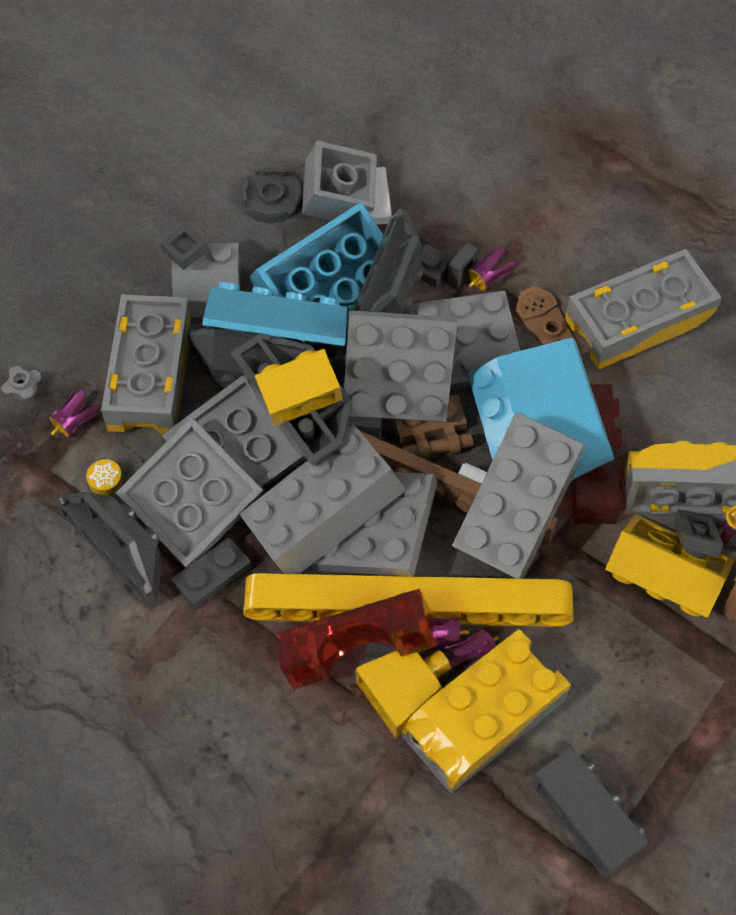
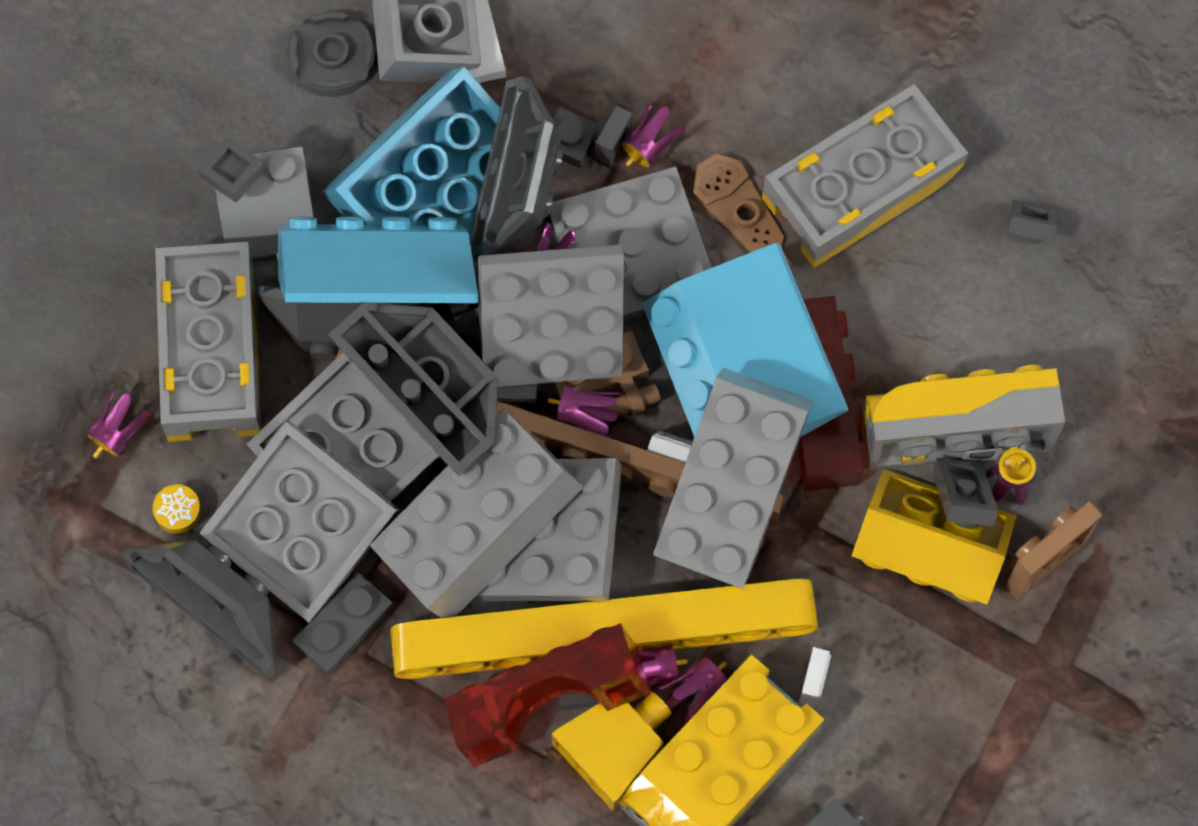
camera: 10 degrees left, 10 degrees up
(25, 390) = (47, 396): light grey plate -> none
(298, 386) = (427, 375): yellow brick -> none
(407, 439) = (586, 409): none -> flat silver piece
(567, 653) = (815, 677): none -> white tile
(712, 510) = (982, 455): none -> white sticker

